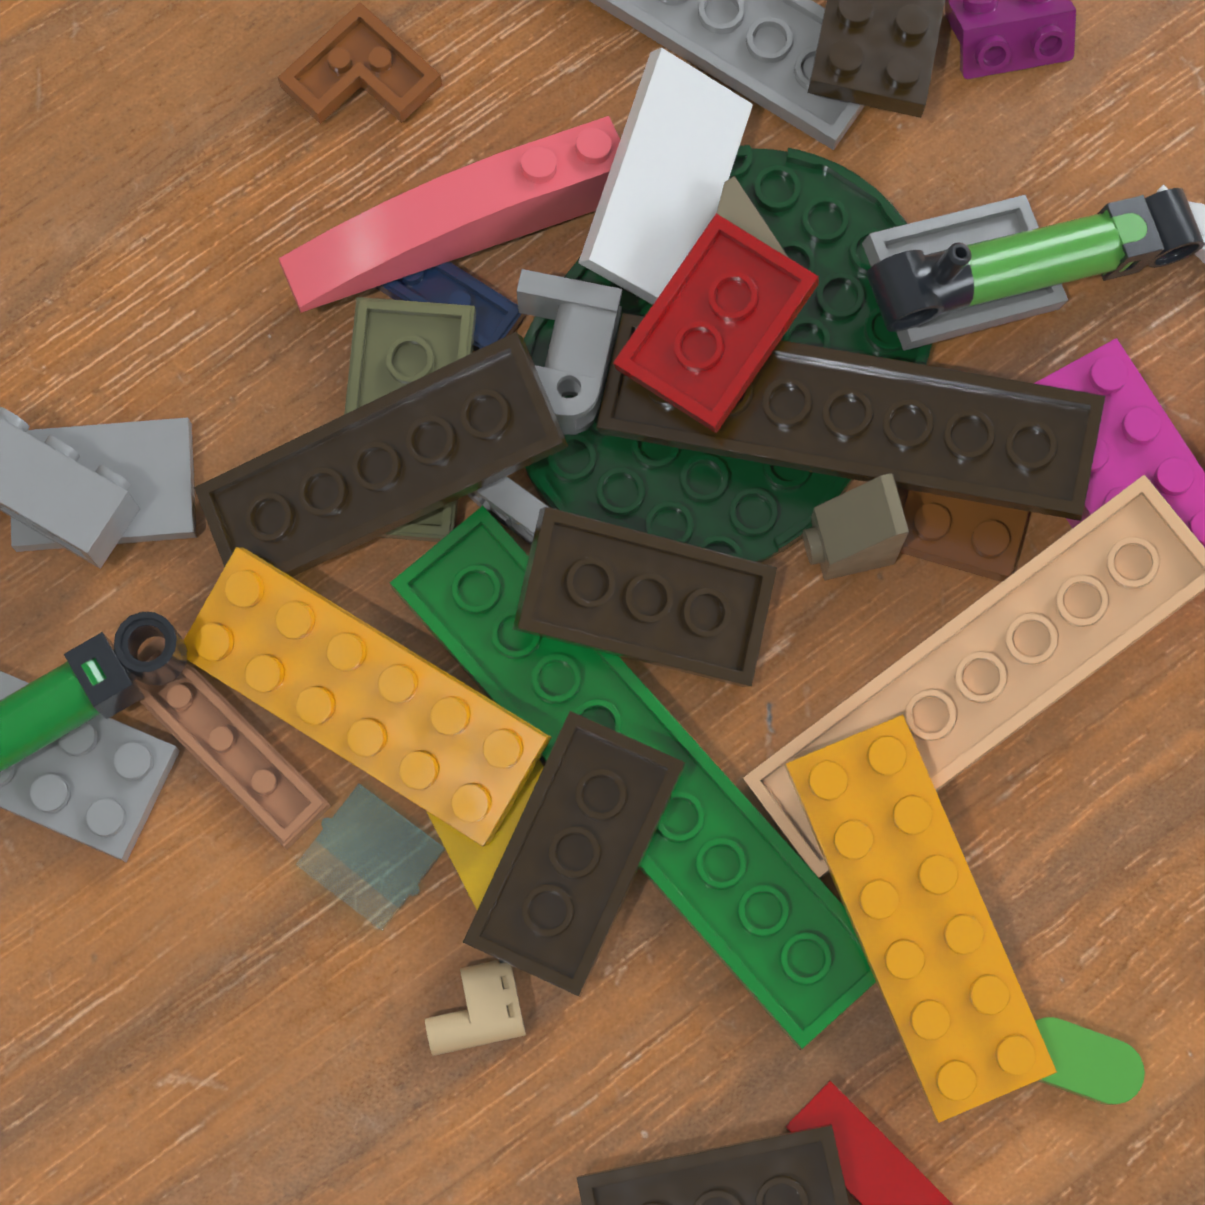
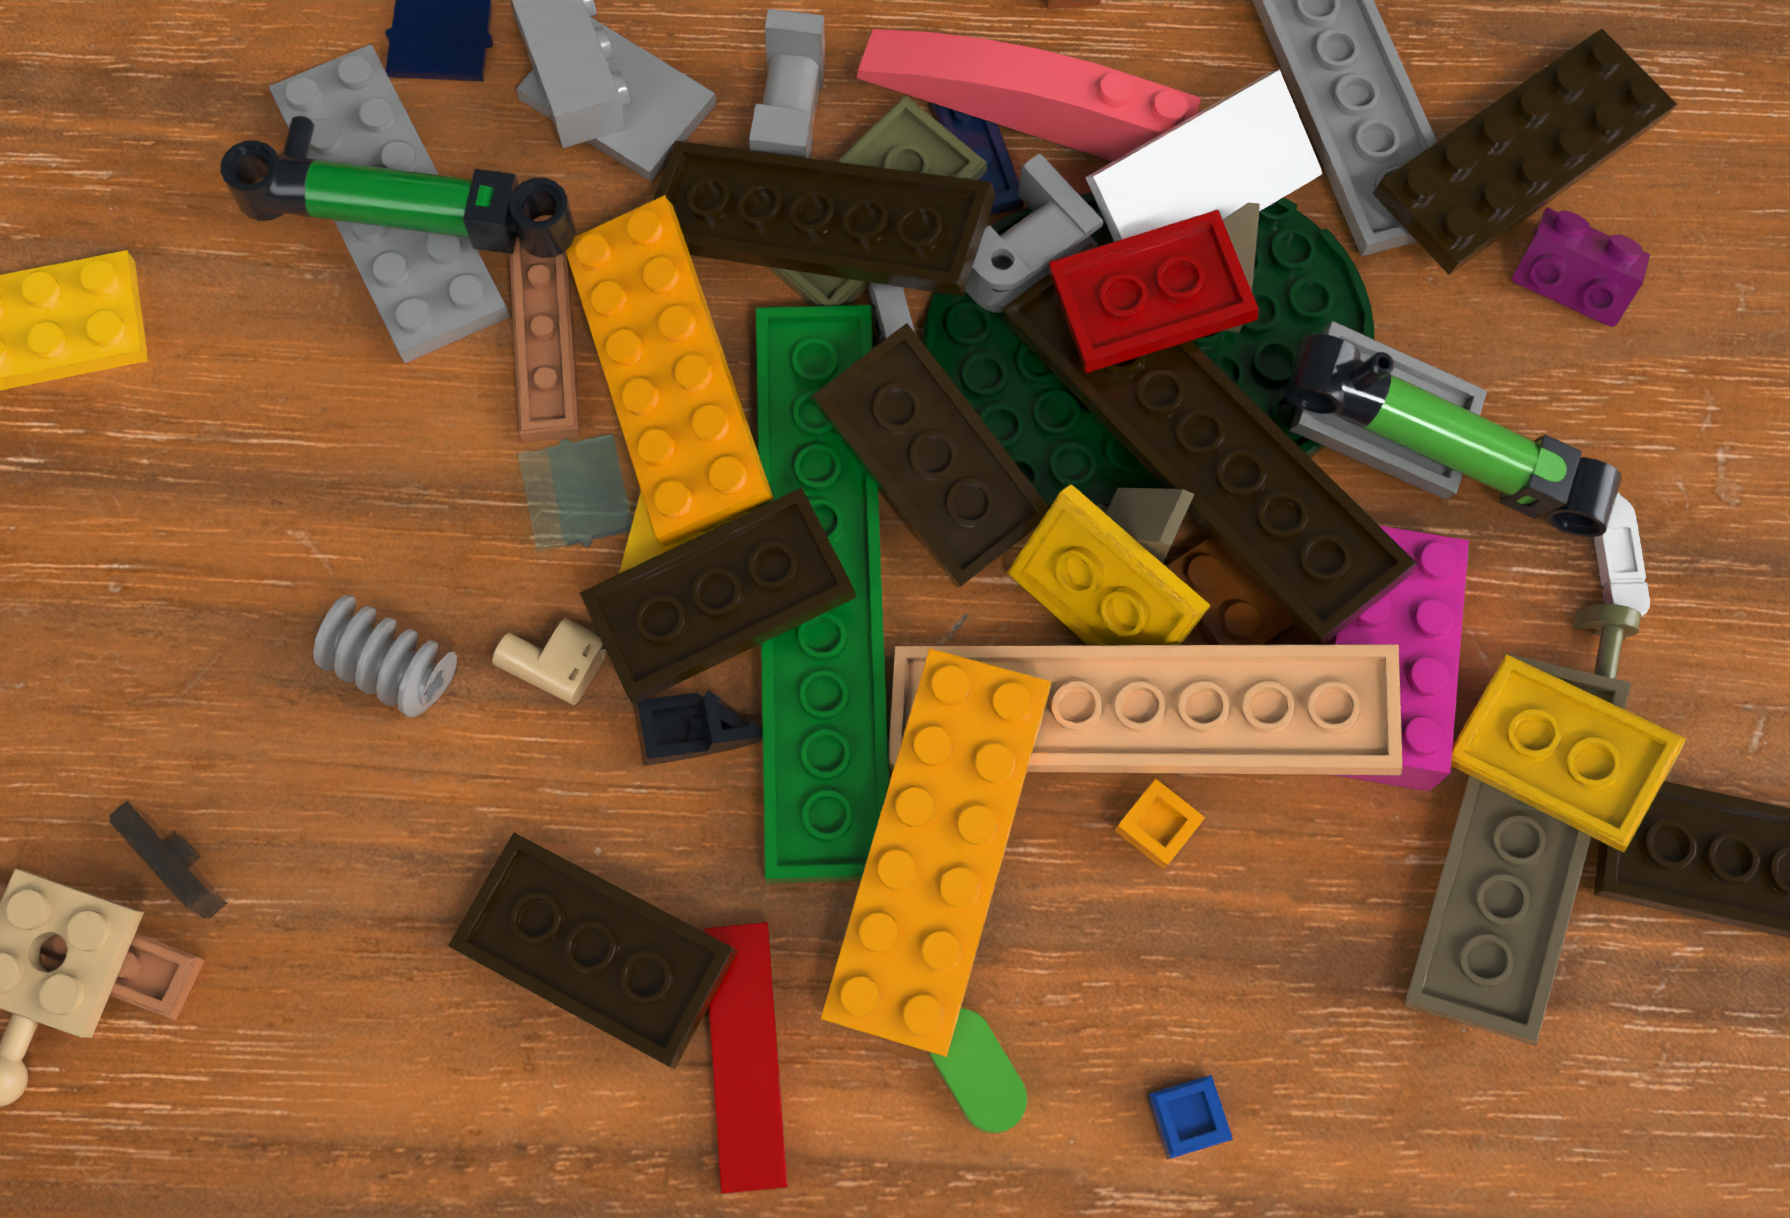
camera: 35 degrees right, 5 degrees down
(243, 351) = (792, 85): none -> light grey piece
(342, 1127) = (380, 661): none -> light grey piece
(633, 976) = (689, 728): none -> black slope
(868, 595) = (1103, 579): none -> yellow tile
(1059, 754) = (1159, 824): none -> light orange plate

